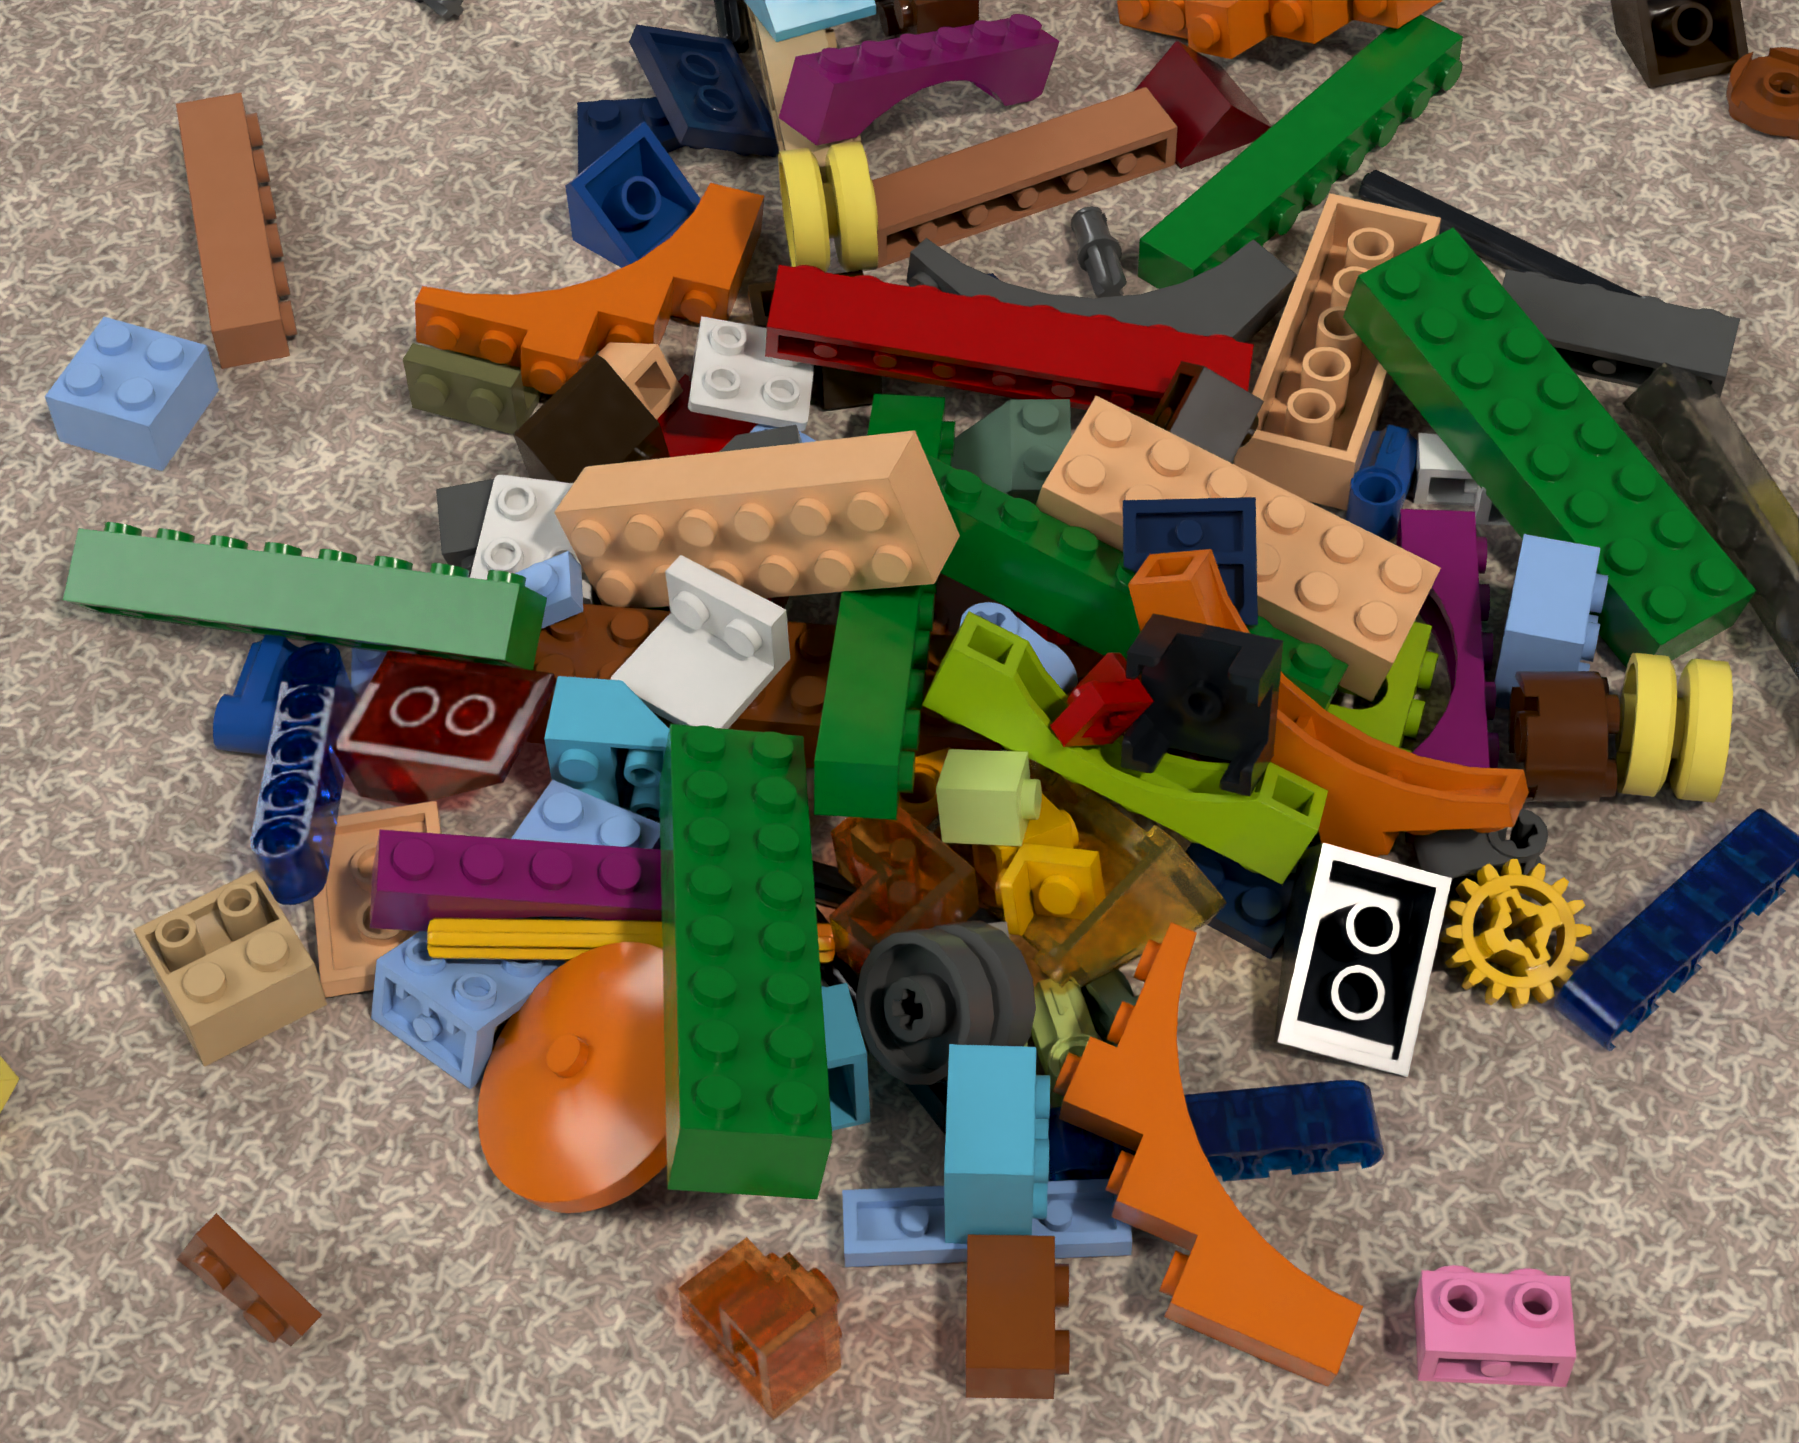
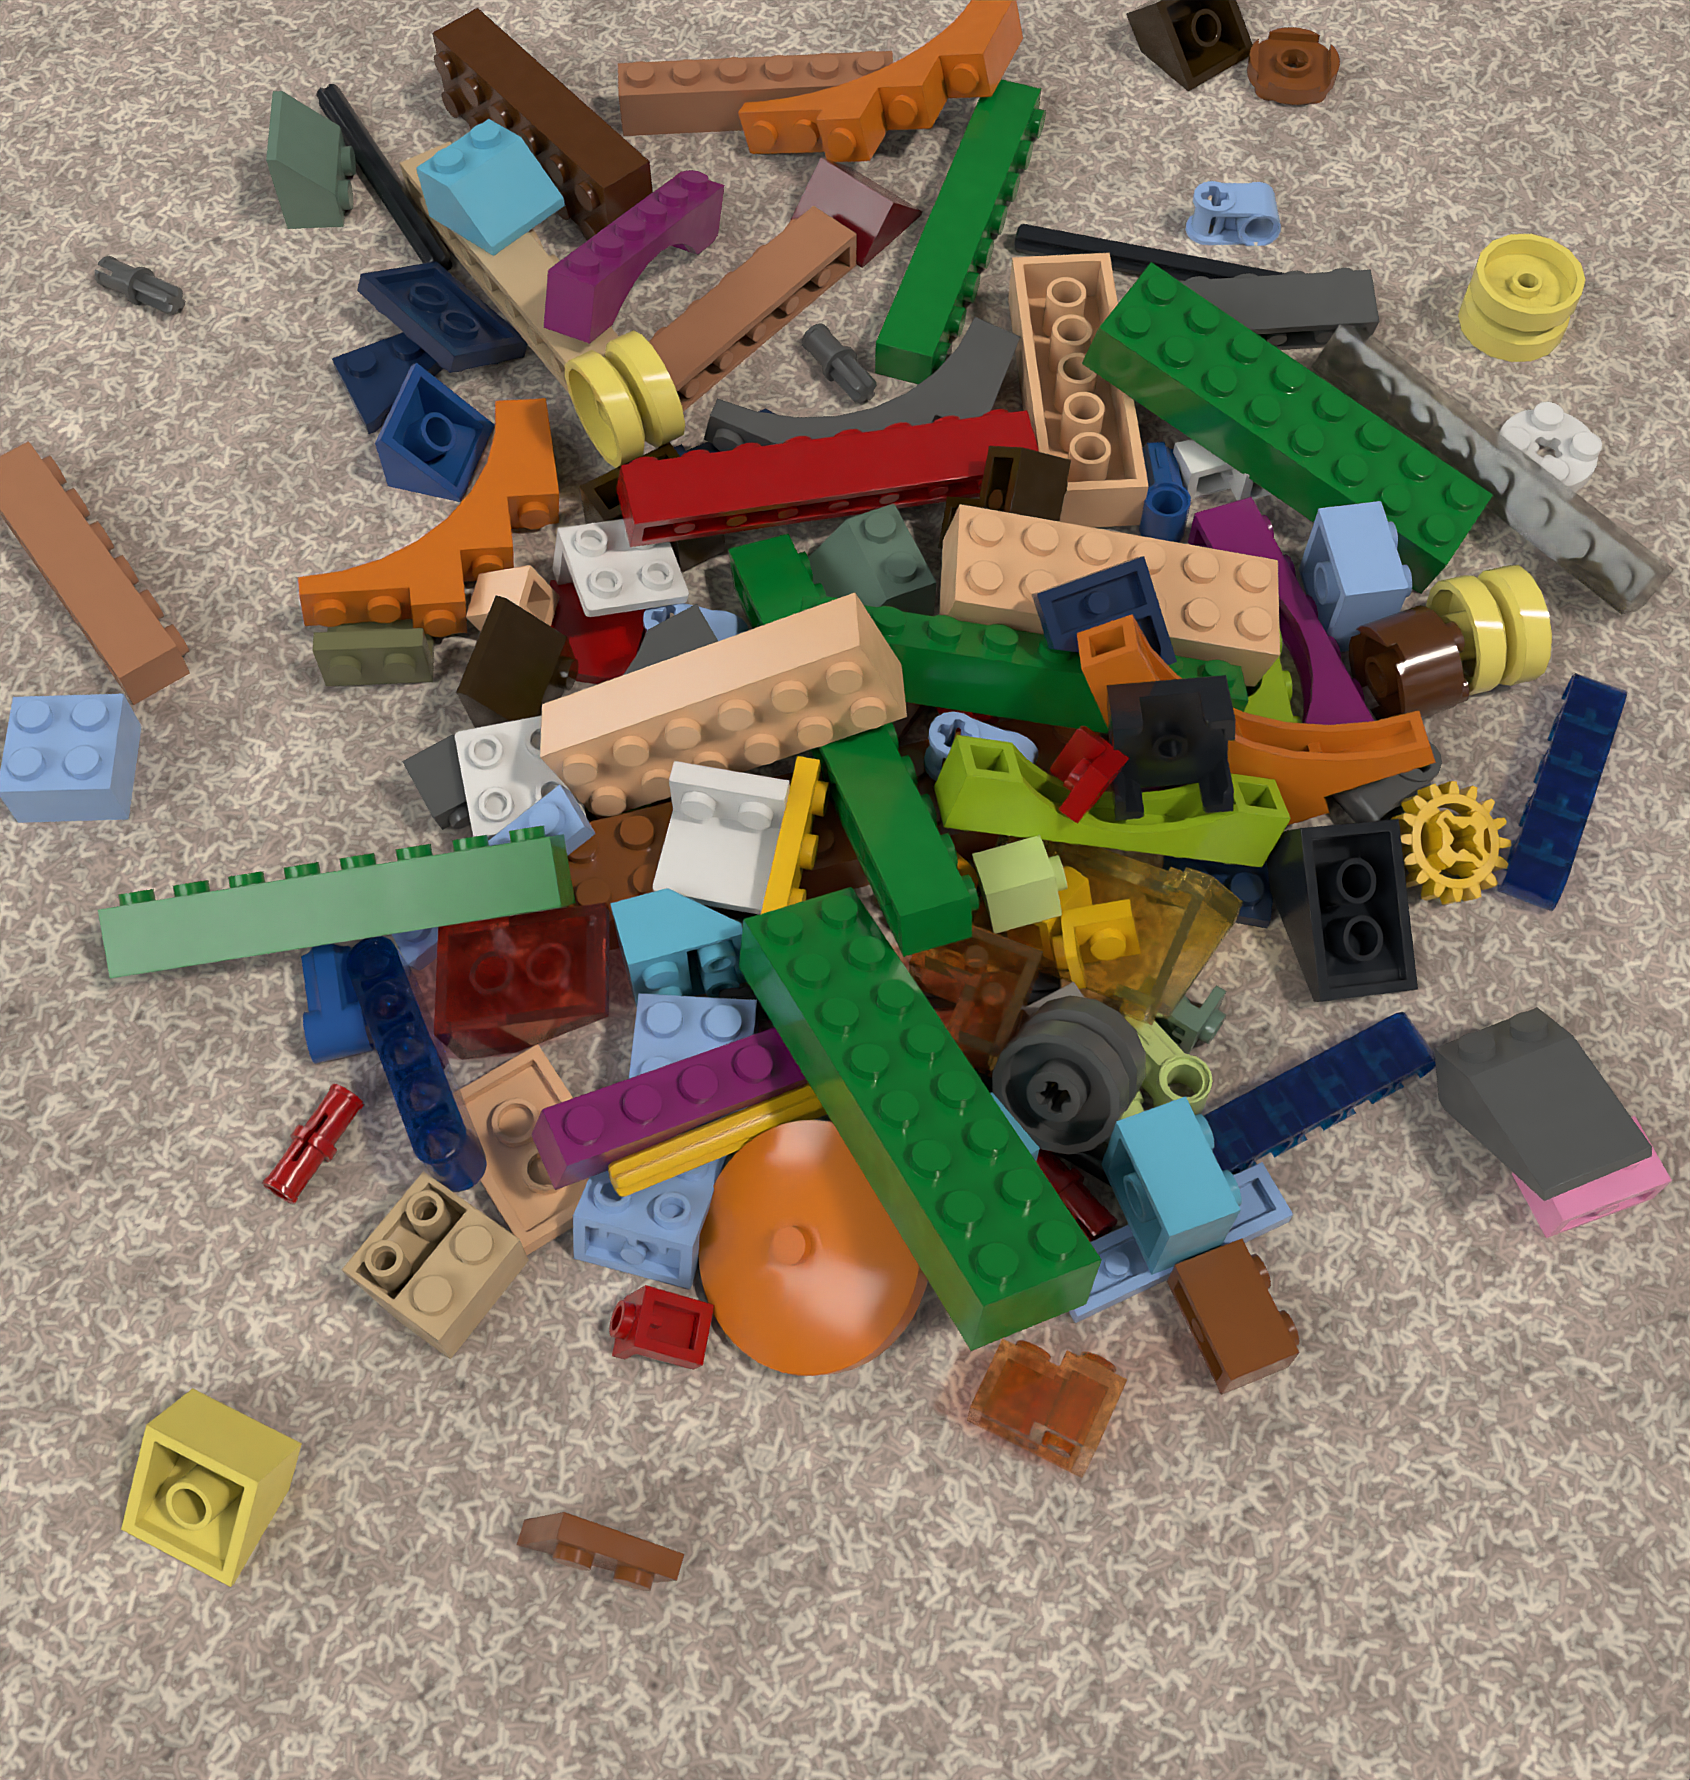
camera: 25 degrees left, 10 degrees up
(176, 819) = (313, 1143): none -> red pin
(420, 1108) = (661, 1327): none -> red bracket
(781, 670) = (795, 843): none -> yellow plate
(900, 1130) = (1082, 1205): none -> red pin
(1233, 1278) = (1310, 1160): orange arch -> none
(1458, 1217) = (1537, 1103): none -> dark grey slope
(1629, 227) = (1237, 211): none -> light blue piece

